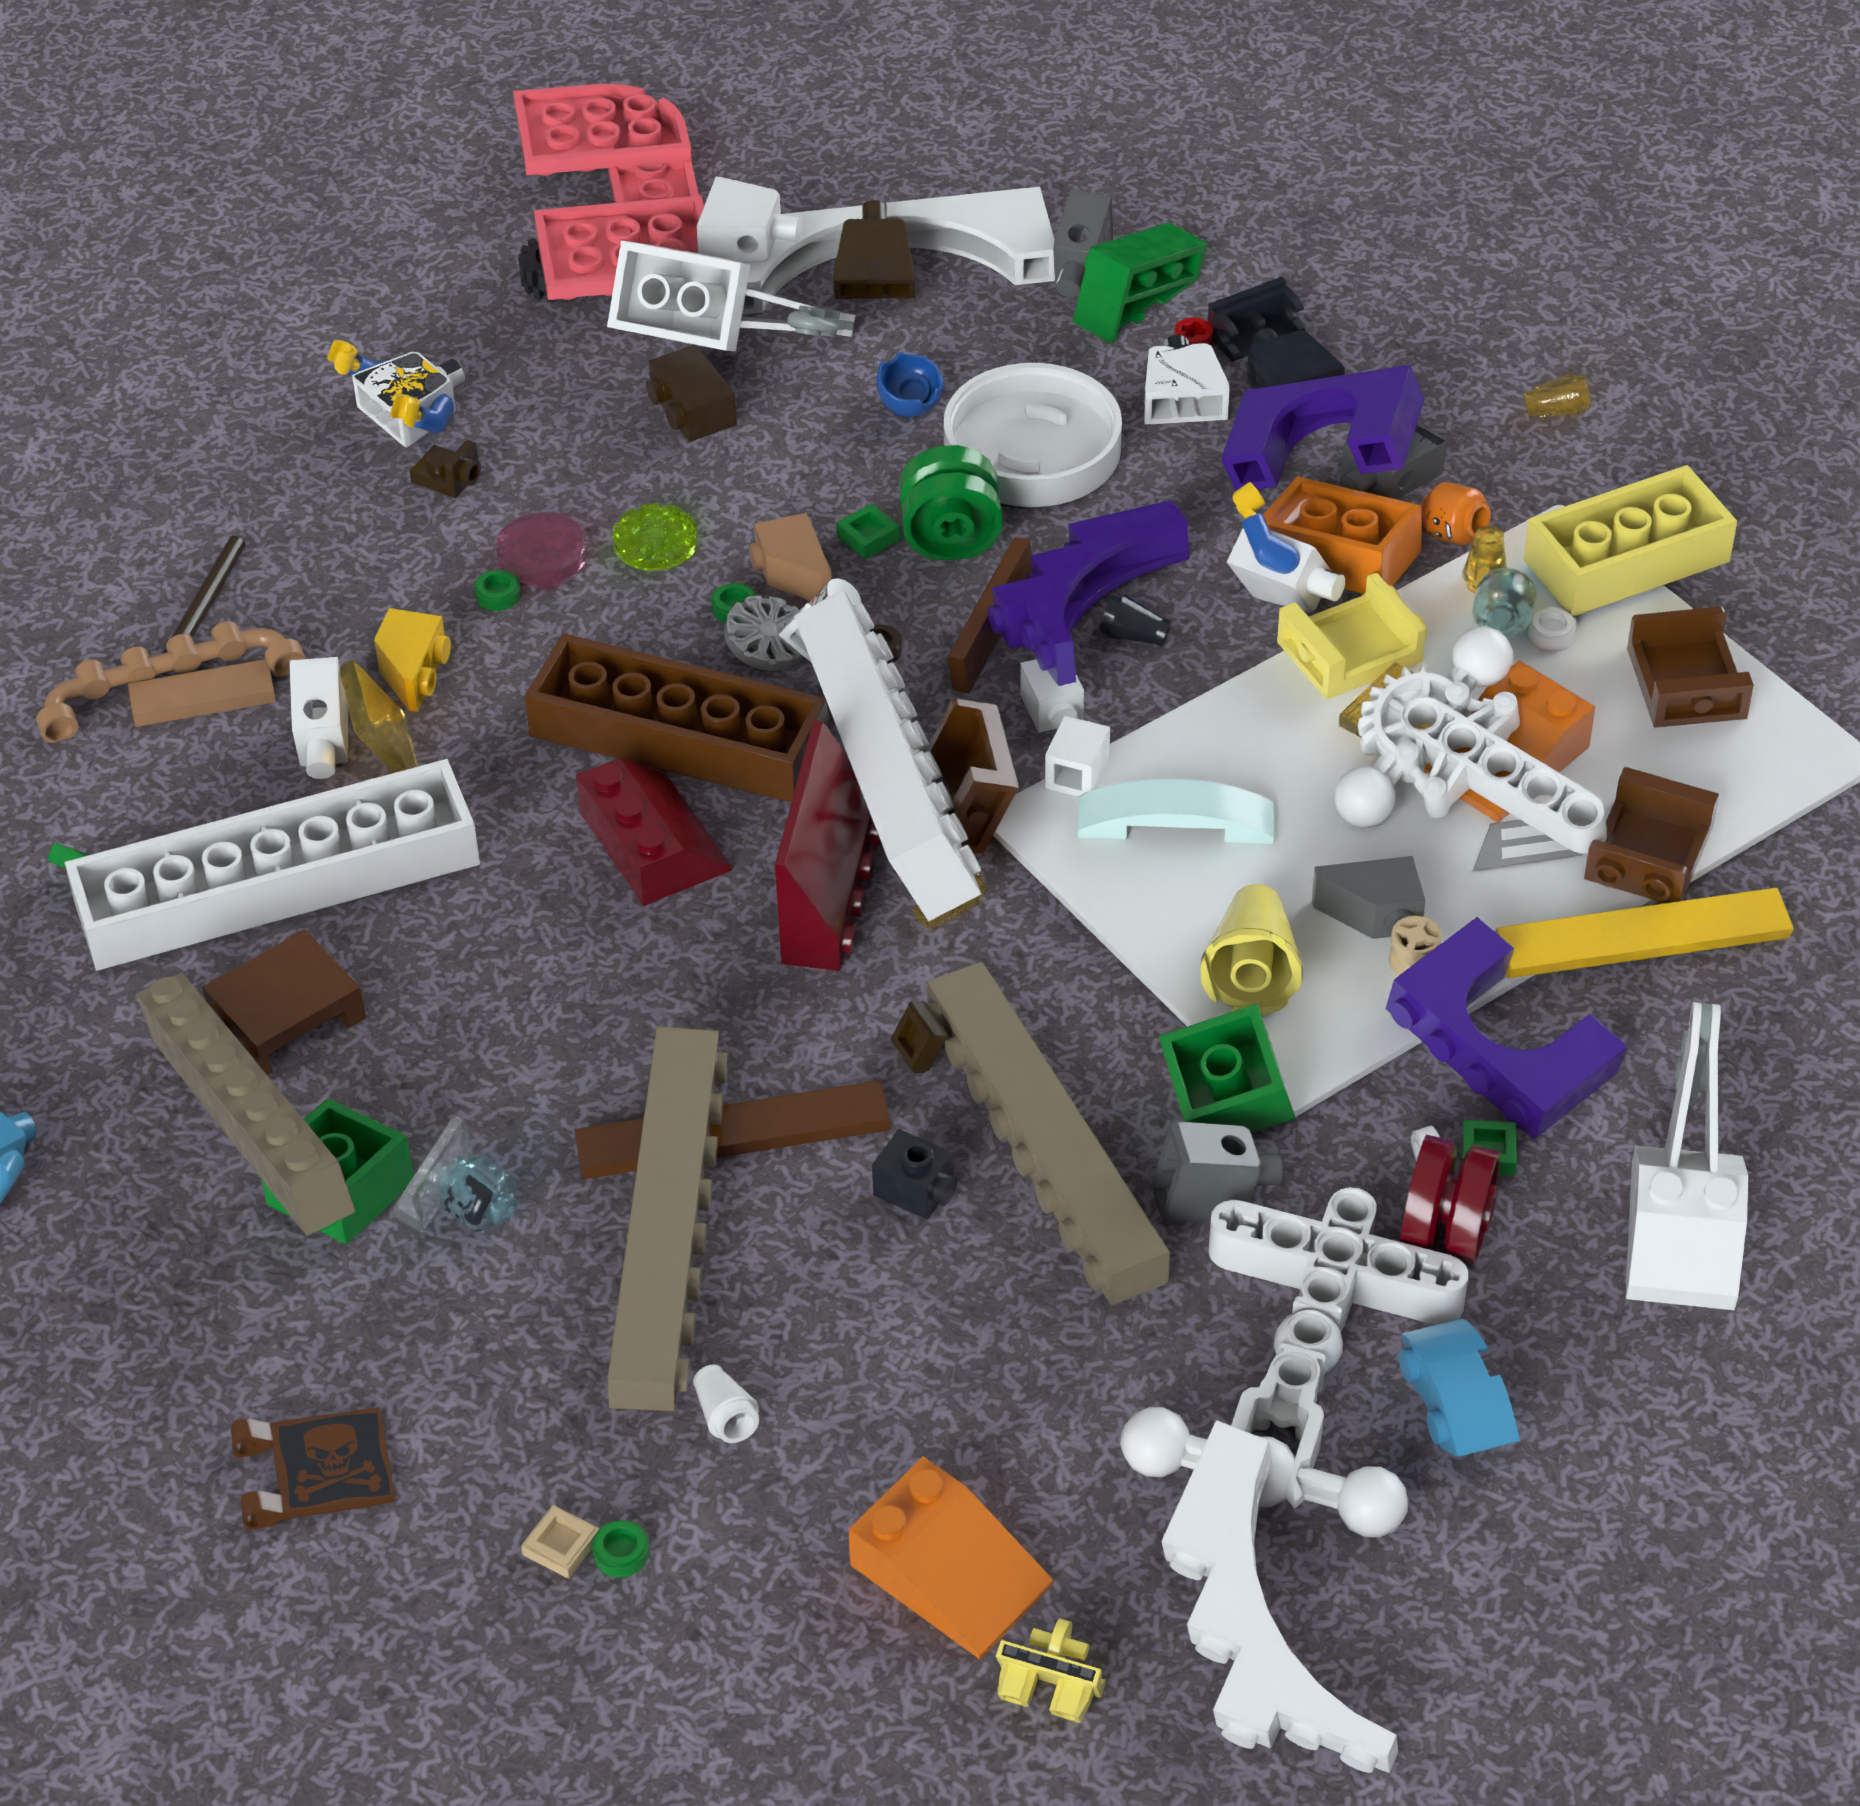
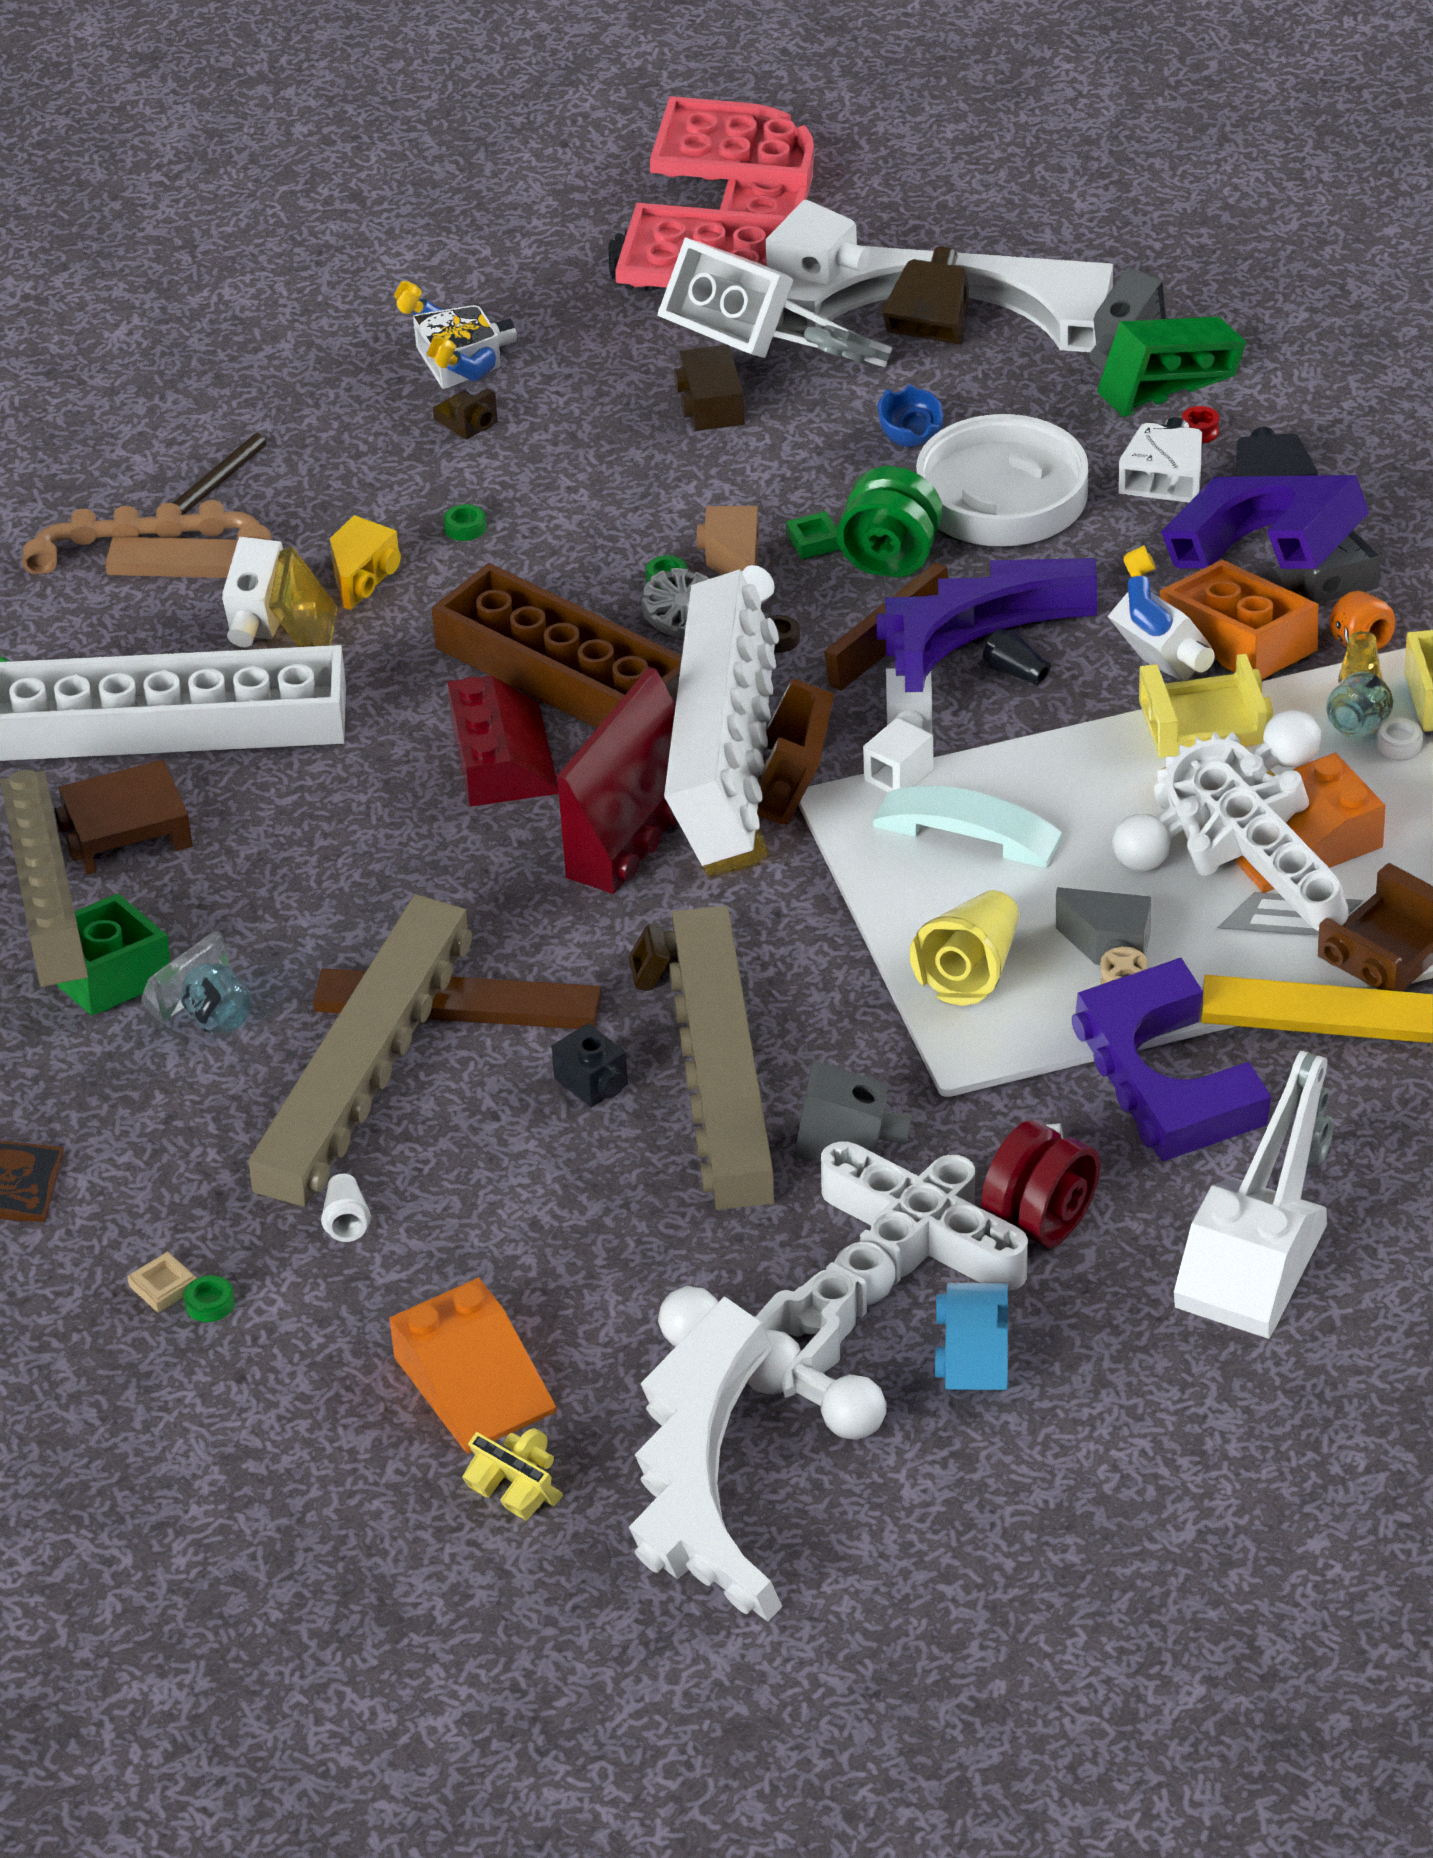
camera: 20 degrees right, 5 degrees down
(542, 549) = (517, 495): clear pink tile -> none
(655, 537) = (624, 505): clear neon green wheel -> none
(1228, 1072) = (898, 1039): green brick -> none
(1245, 313) = (1278, 407): black hinge -> none
(1494, 1136) = (1116, 1153): green plate -> none

